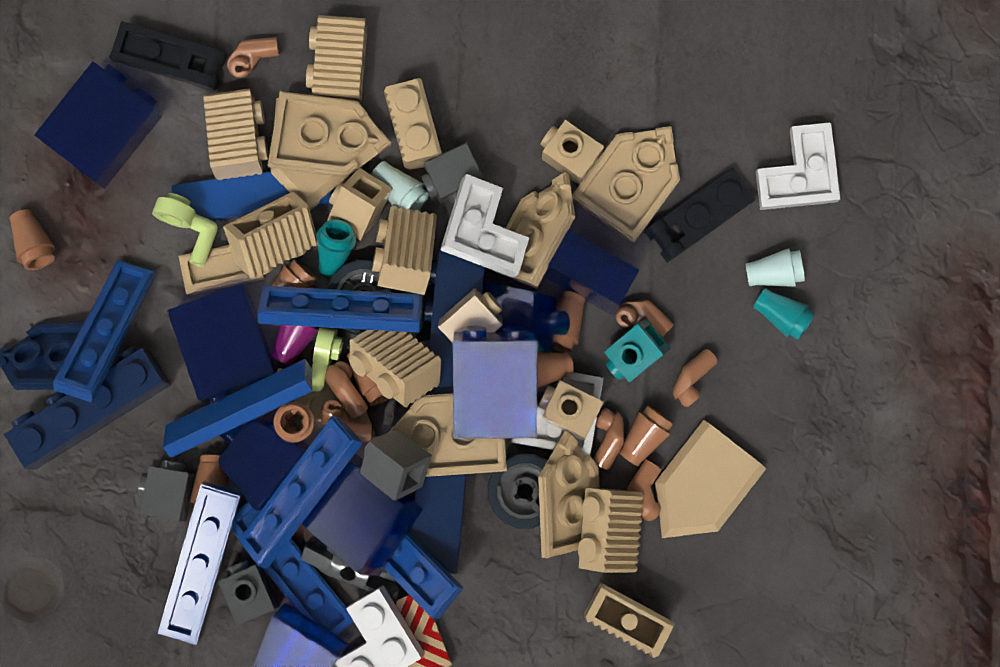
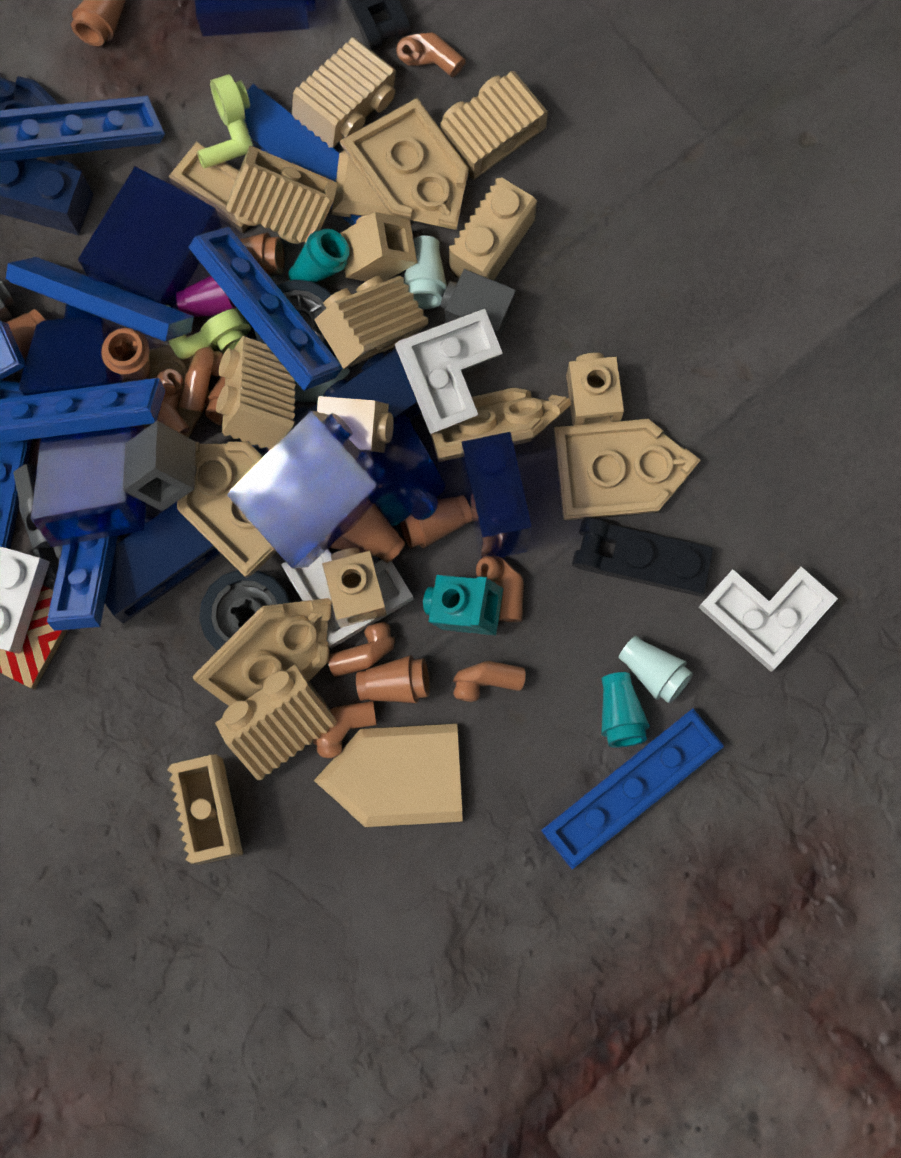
camera: 50 degrees right, 5 degrees down
(835, 349) = (632, 789): none -> blue tile

